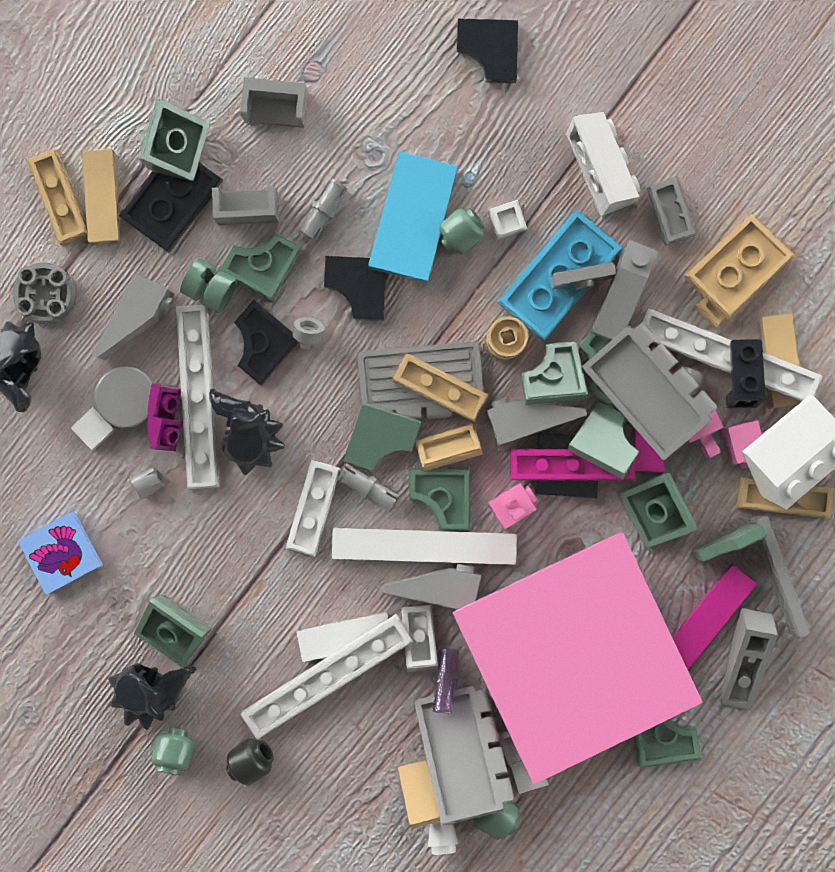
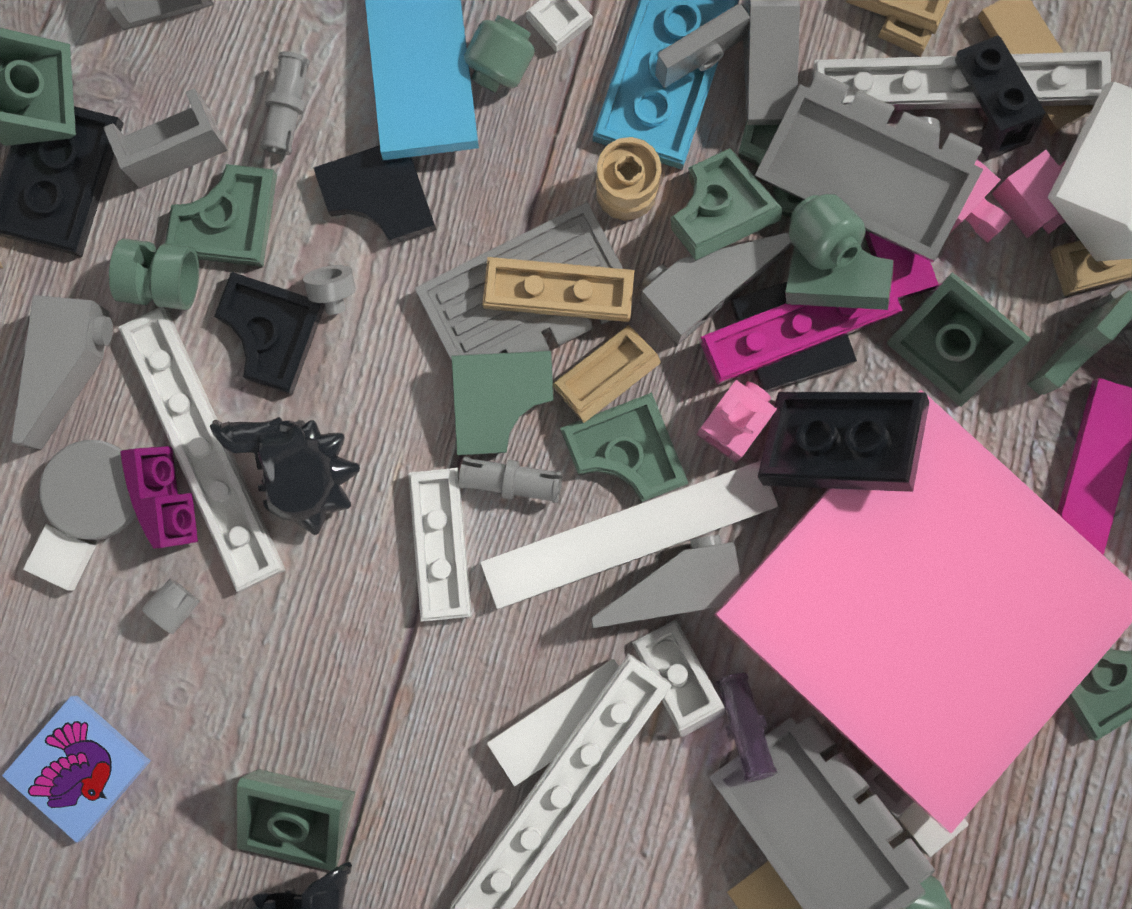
camera: 20 degrees left, 5 degrees down
(566, 543) = (845, 440): none -> black tile
(606, 419) = (826, 231): none -> sand green head

